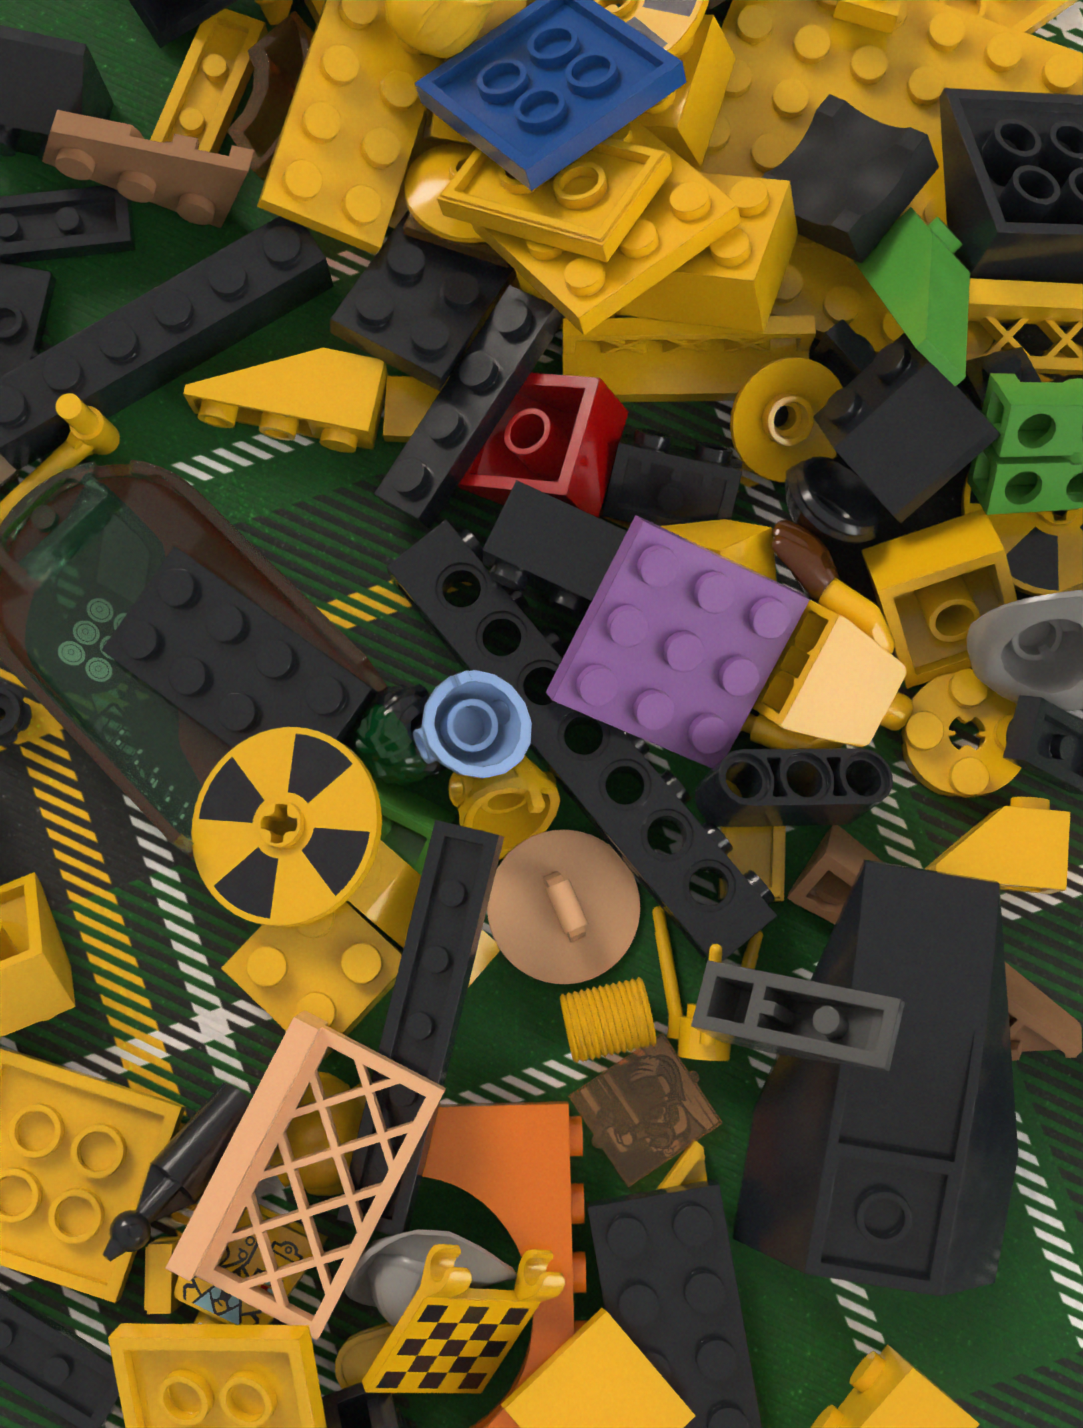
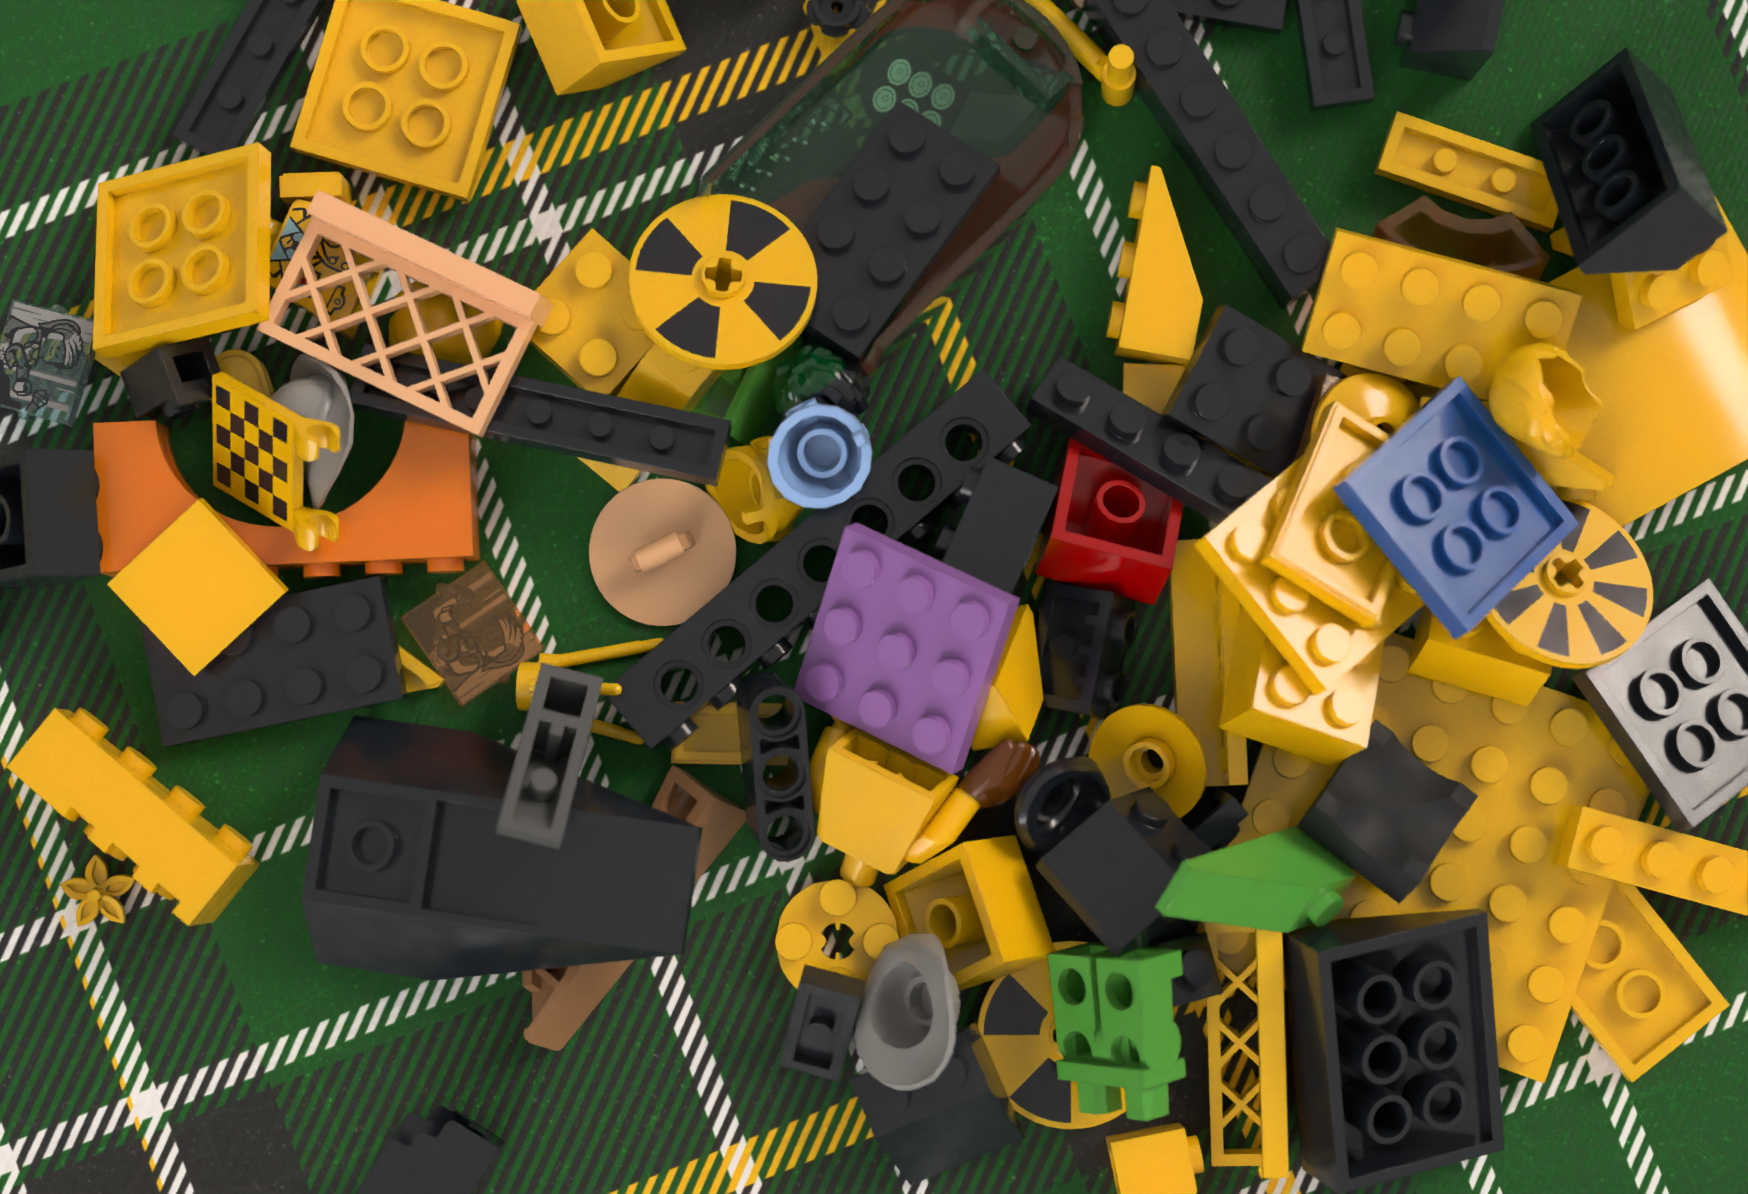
camera: 85 degrees right, 5 degrees up
(143, 170) = (1377, 139): medium nougat wing -> none
(180, 1170) = (409, 201): black wheel -> none
(608, 1020) = (553, 593): yellow piece -> none
(1015, 845) = (722, 978): yellow slope -> none

